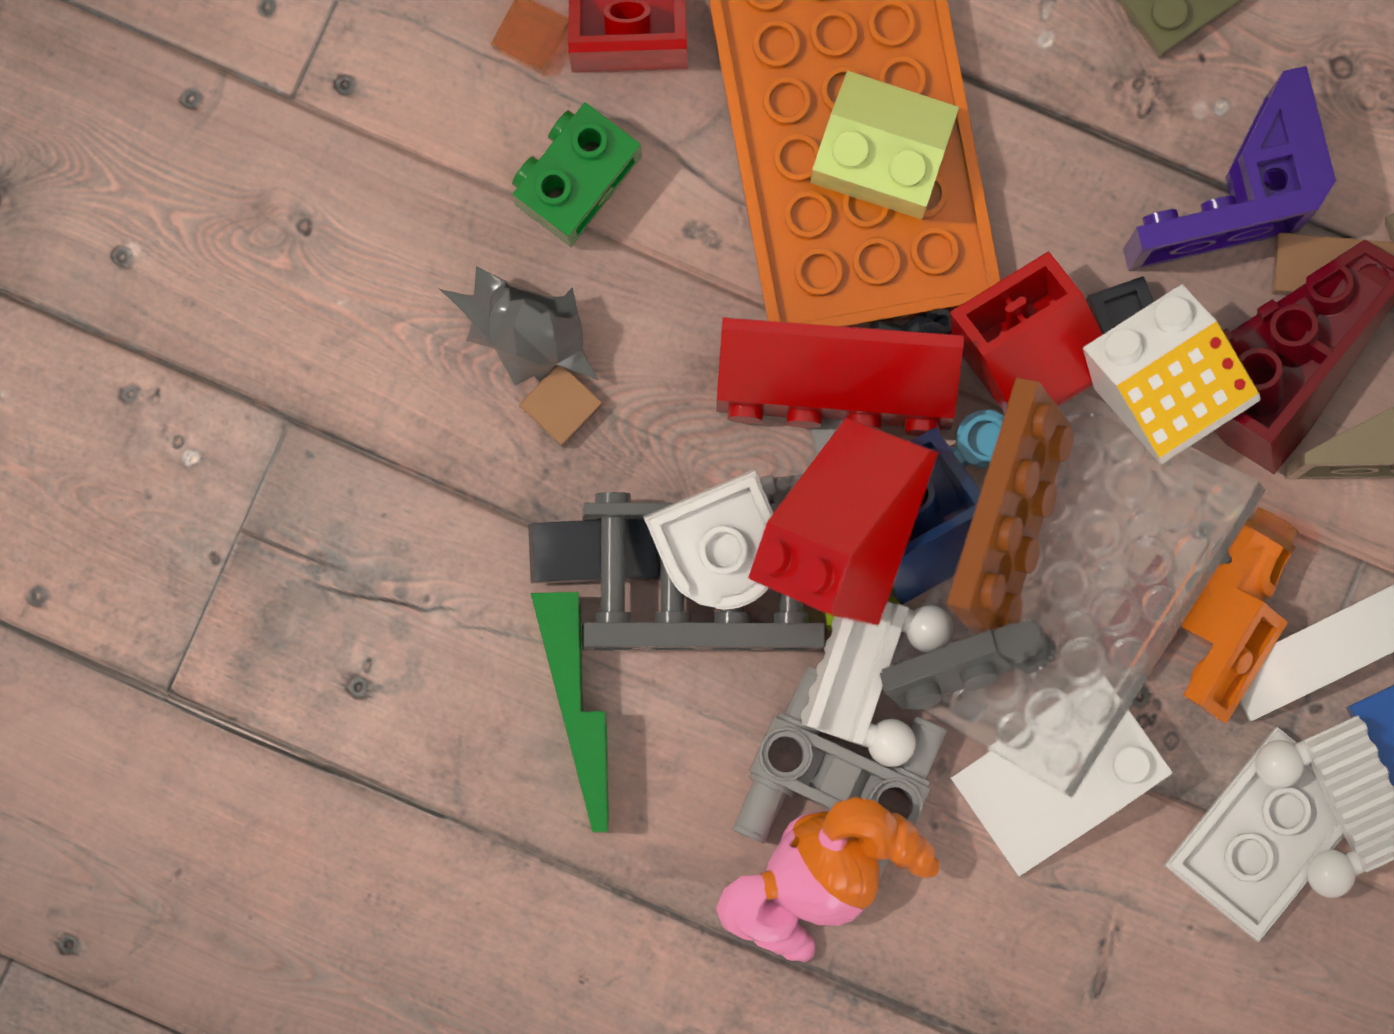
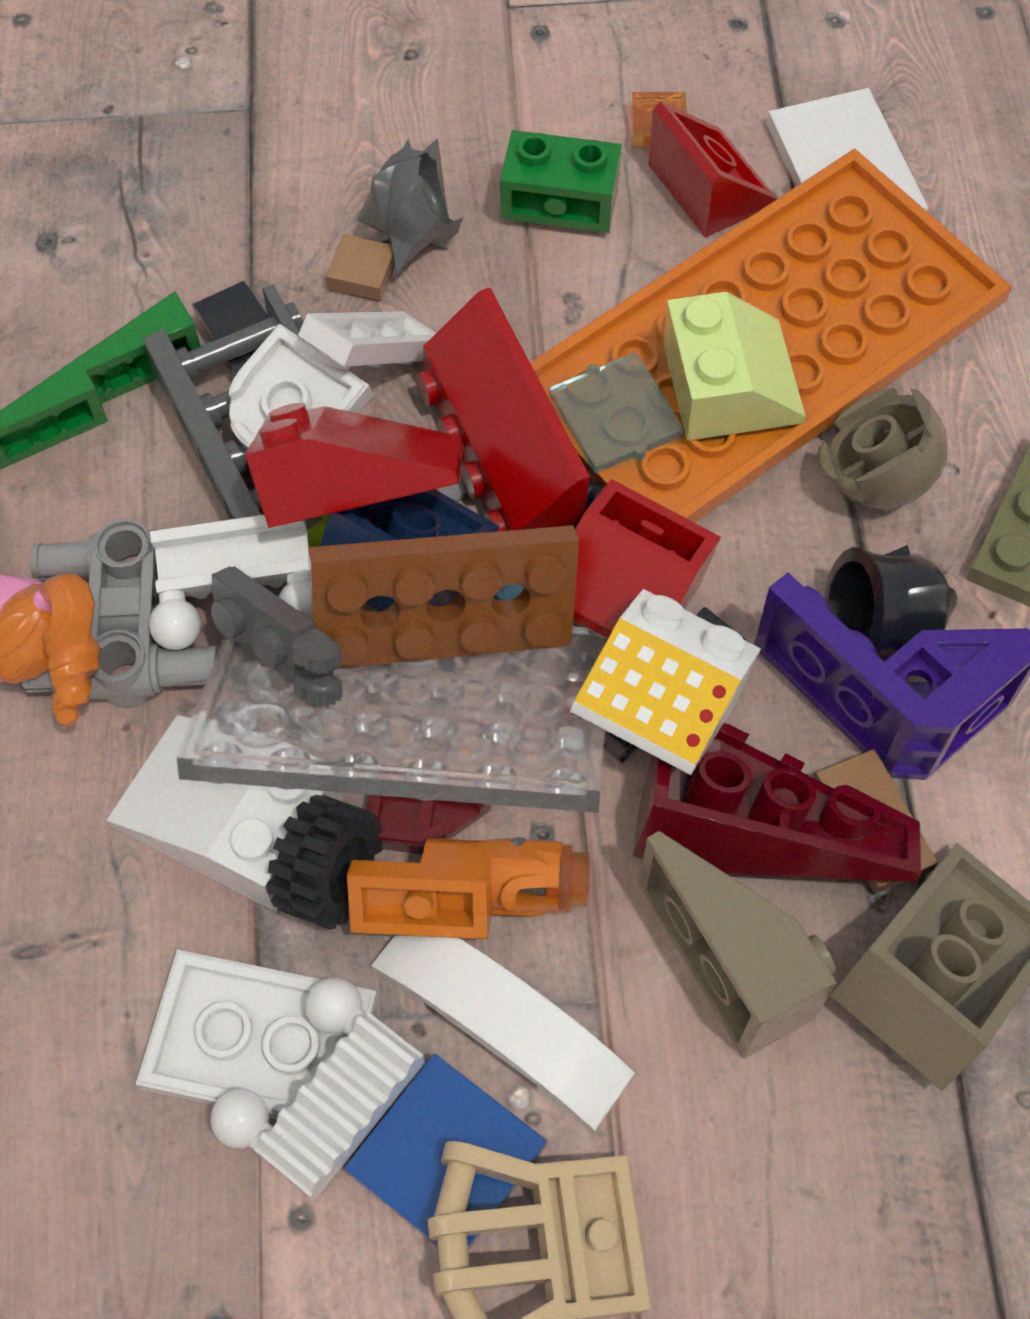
camera: 60 degrees right, 20 degrees down
(690, 440) = (365, 338): none -> white plate
(862, 264) = (616, 412): none -> clear light blue piece
(1028, 62) = (886, 449): none -> dark tan cylinder
(1172, 720) = (317, 857): none -> black tyre
(1174, 129) = (902, 590): none -> black helmet

